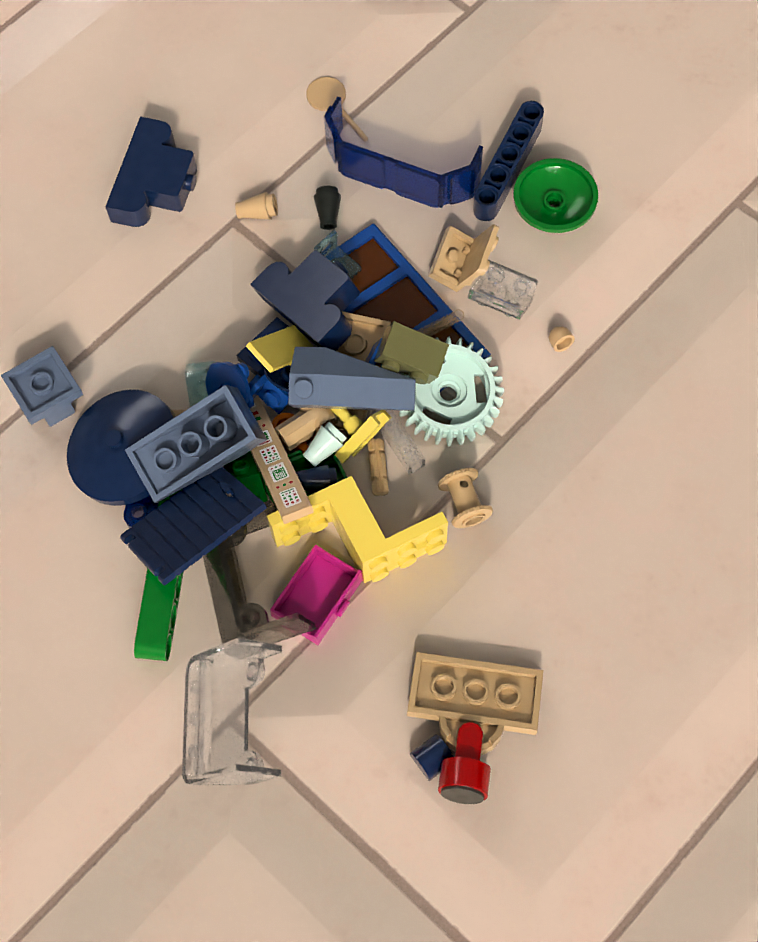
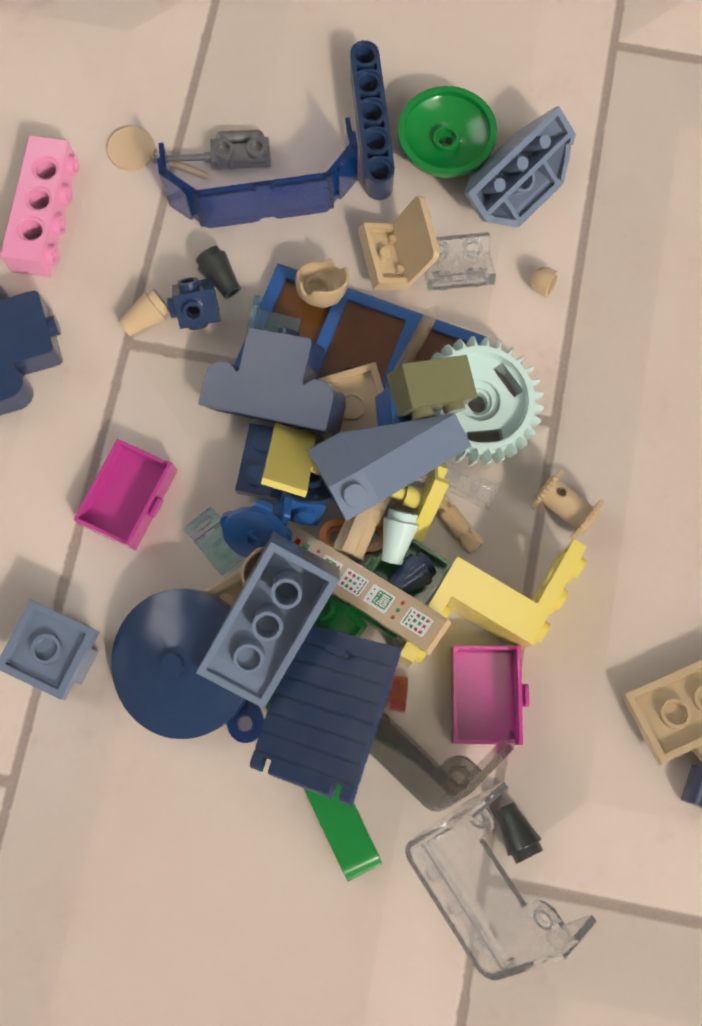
camera: 35 degrees left, 10 degrees up
(163, 319) = (126, 494): none -> dark pink container
(235, 100) = (41, 160): none -> bright pink brick
(253, 560) = (399, 694): none -> clear red tile
(273, 701) = (518, 834): none -> pearl dark grey cone
(295, 217) = (194, 303): none -> dark blue brick
(391, 250) = (321, 283): none -> tan hair
(395, 131) = (232, 151): none -> flat silver piece
(593, 254) = (523, 171): none -> sand blue wedge

